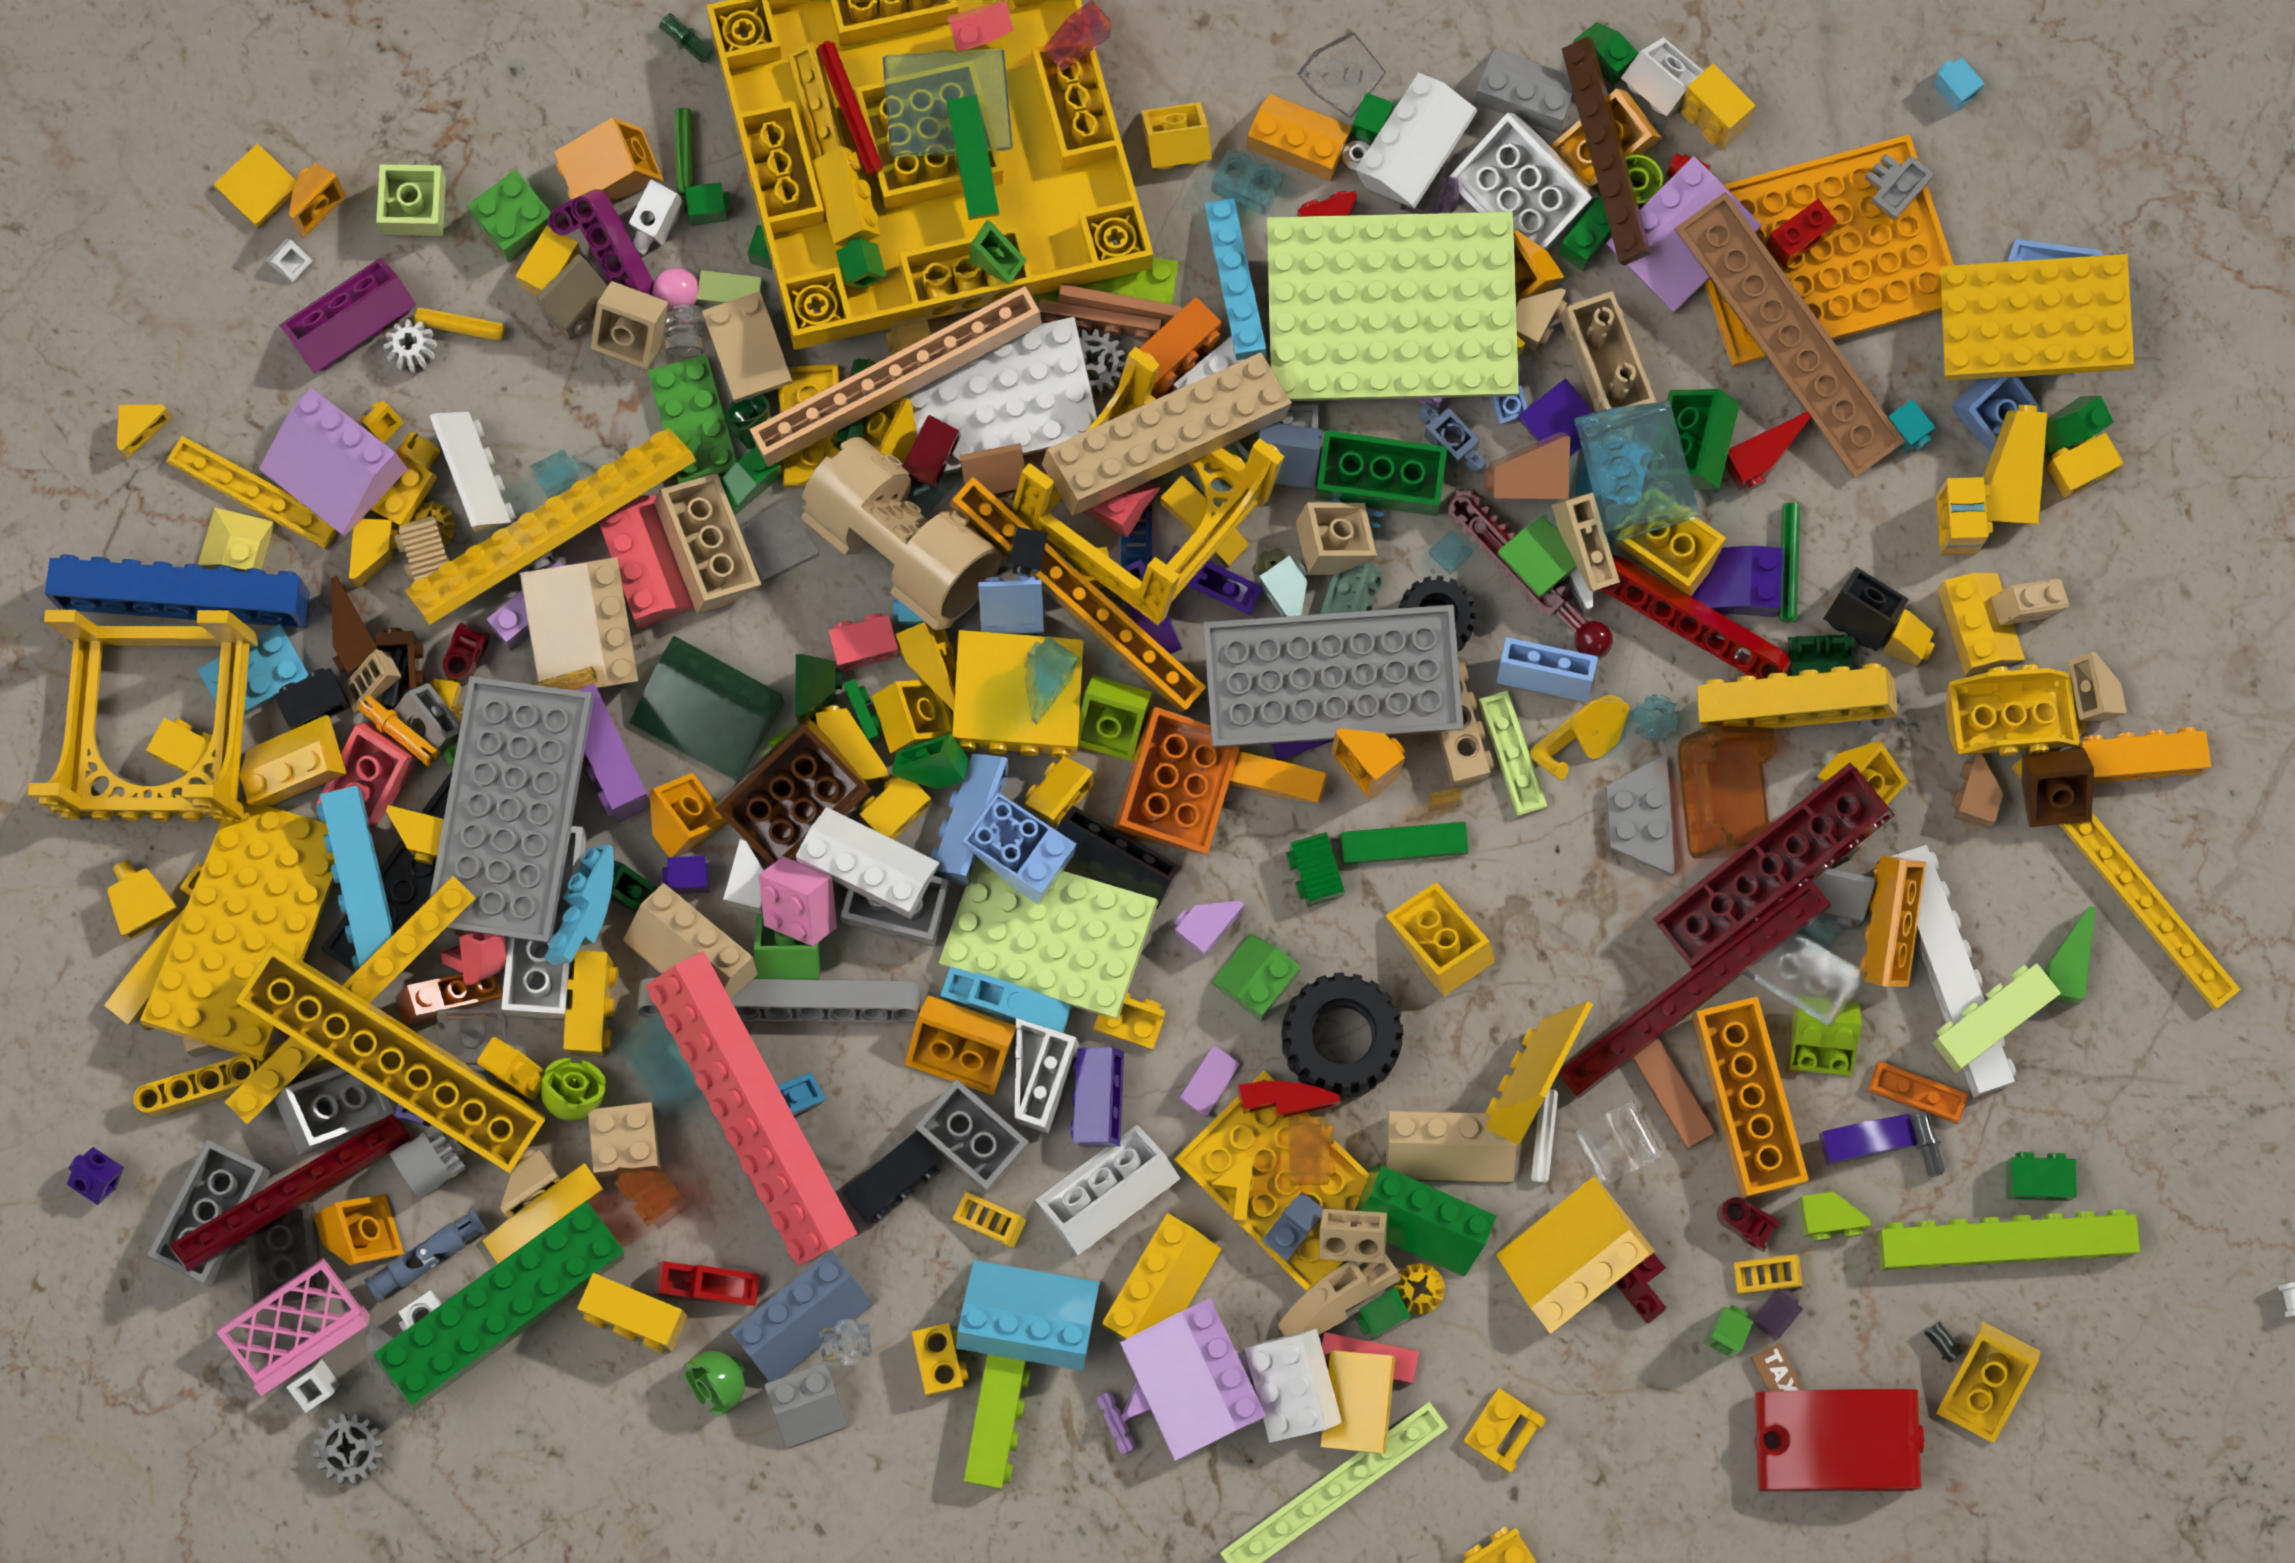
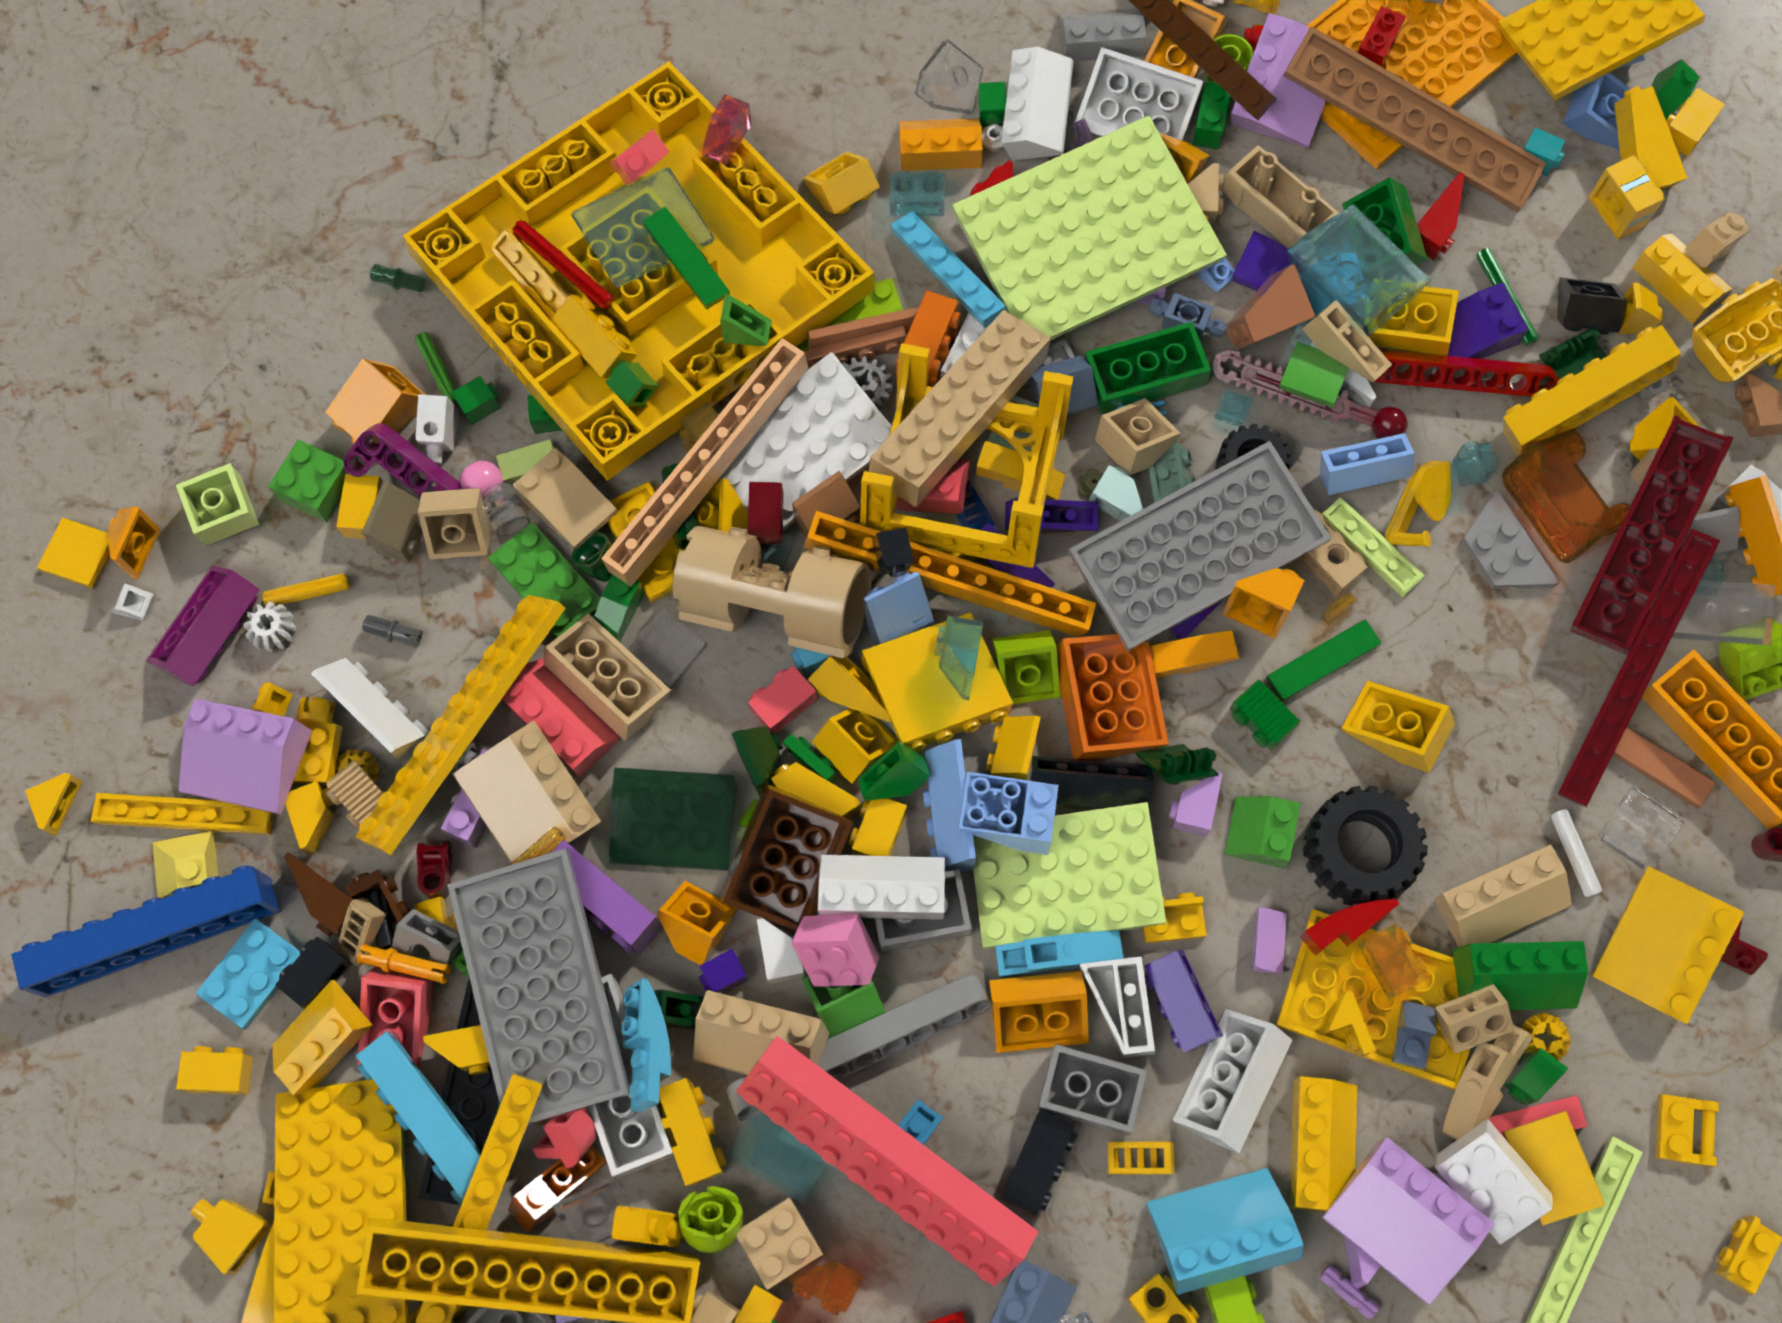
camera: 20 degrees left, 5 degrees down
(70, 786) = (118, 1154): yellow arch -> none
(524, 402) = (391, 630): none -> dark grey axle
(556, 473) = (446, 676): clear light blue brick -> none
(1206, 876) = (1180, 763): none -> dark green hinge
(1534, 1072) = (1556, 797): yellow slope -> none

